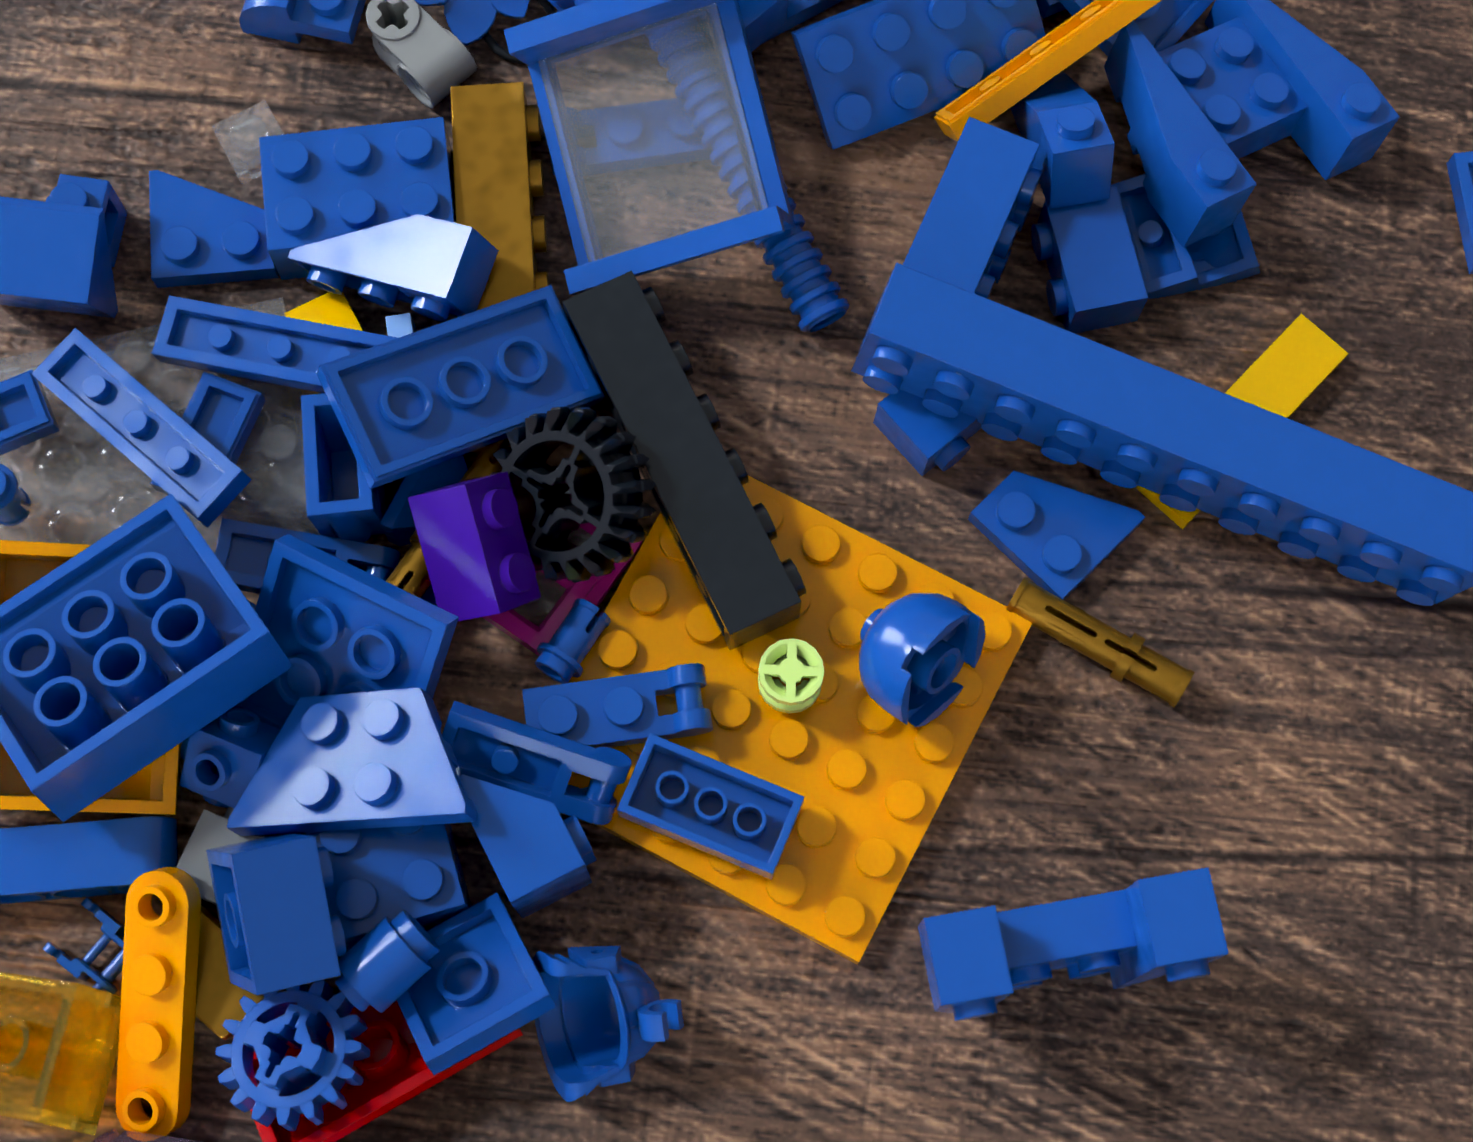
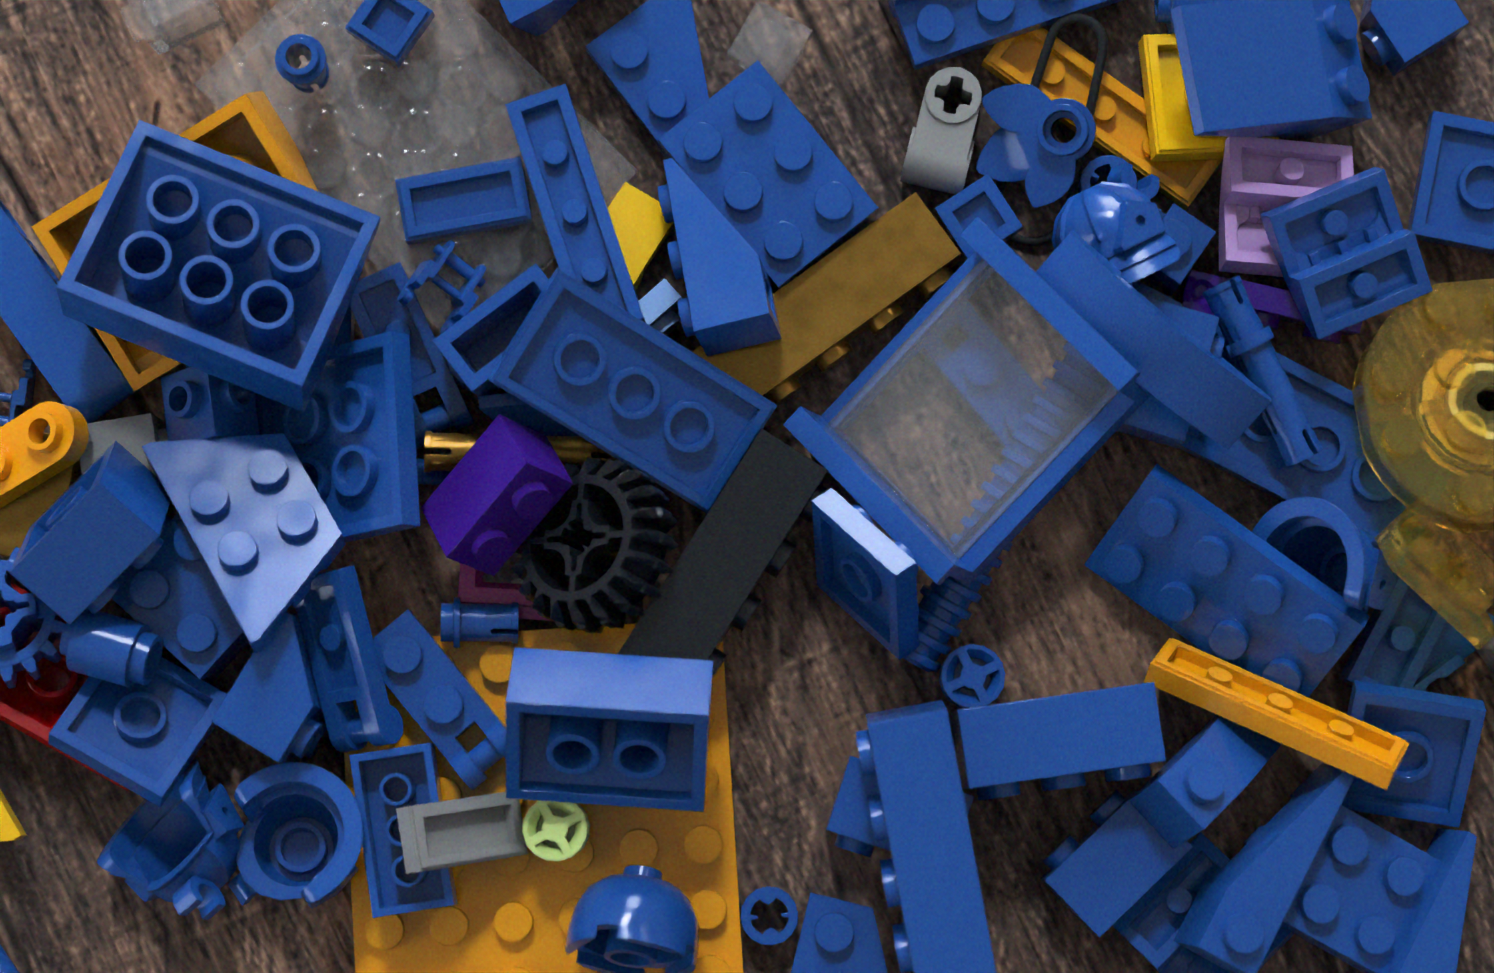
camera: 65 degrees right, 10 degrees up
(142, 427) = (432, 142): plate -> none
(289, 486) = (428, 271): none -> blue piece
(492, 59) = (979, 200): none -> blue tile
(658, 899) = (297, 836): none -> blue helmet
(736, 295) = (866, 572): none -> blue plate
(737, 560) = (608, 729): none -> blue slope
(744, 752) = (460, 832): none -> light grey tile
(872, 269) = (980, 672): none -> blue wheel
(978, 540) = (770, 935): none -> blue bush

